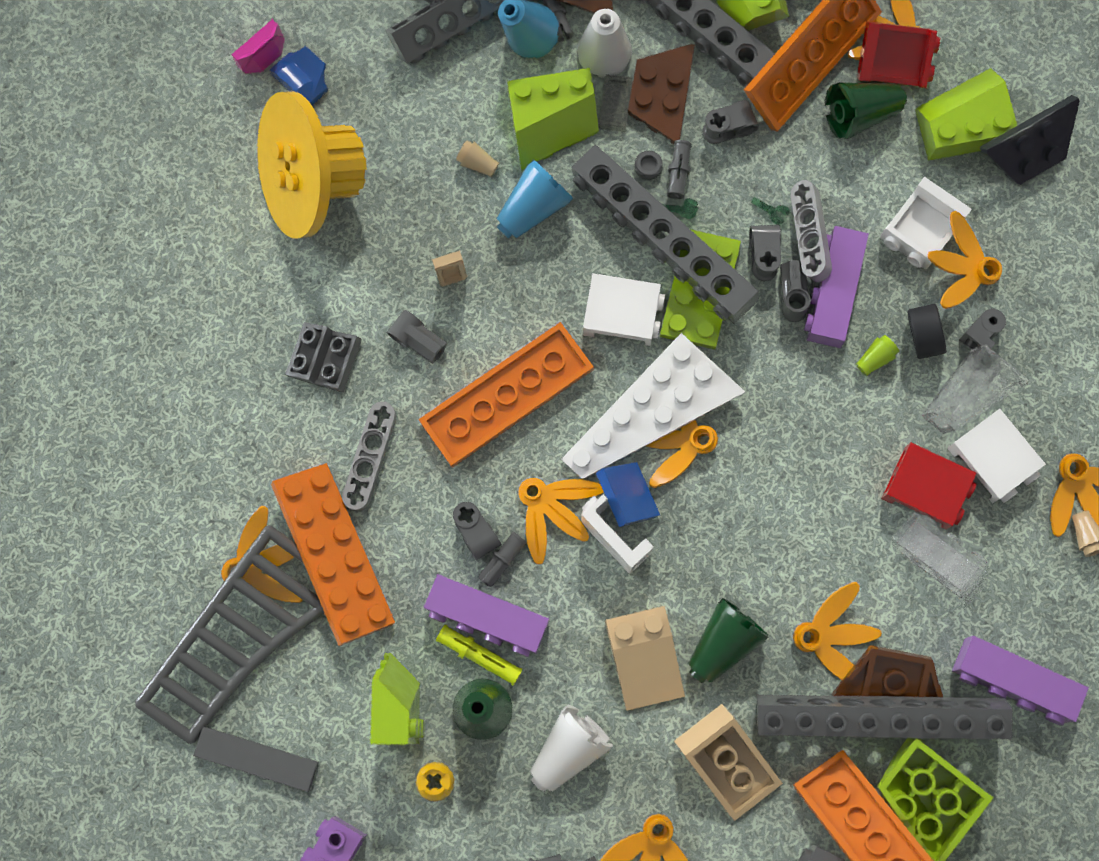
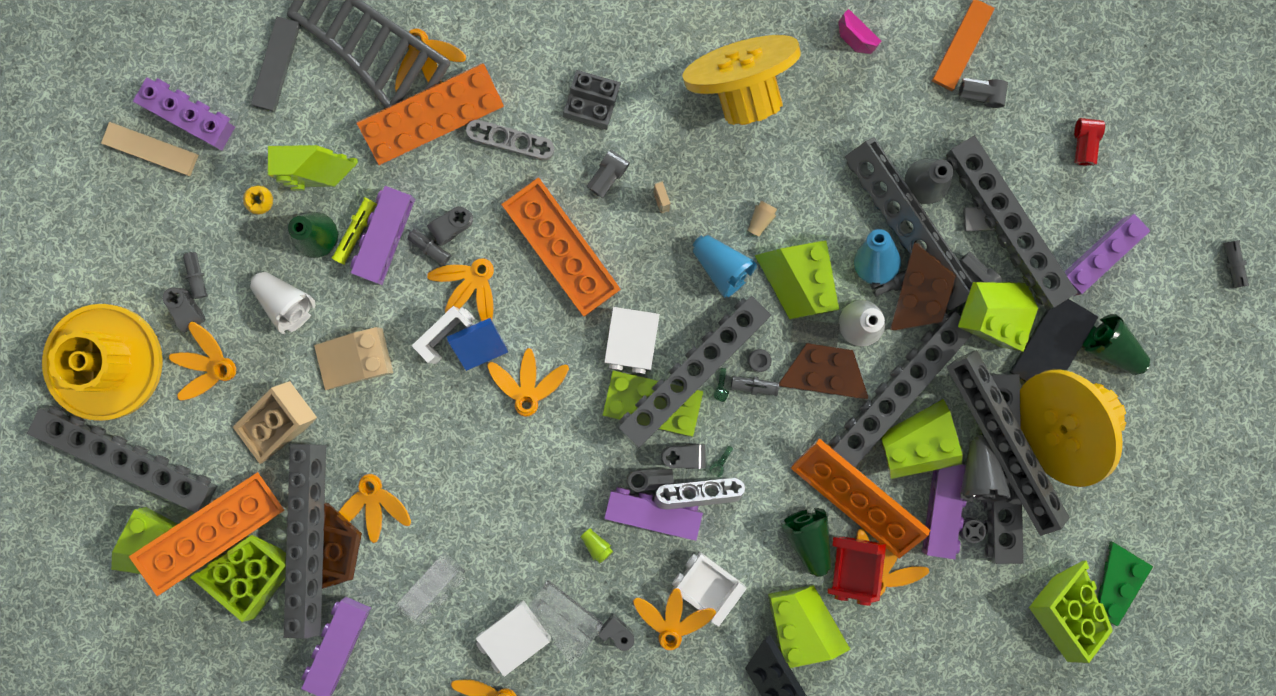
camera: 80 degrees right, 10 degrees up
(302, 73) = (834, 69): blue slope -> none
(664, 398) = (558, 374): white wing -> none
(725, 642) = (364, 421): dark green cone -> none
(729, 122) = (797, 432): dark grey piece -> none
(927, 331) = (615, 586): black tyre -> none
(930, 485) = (488, 584): red panel -> none

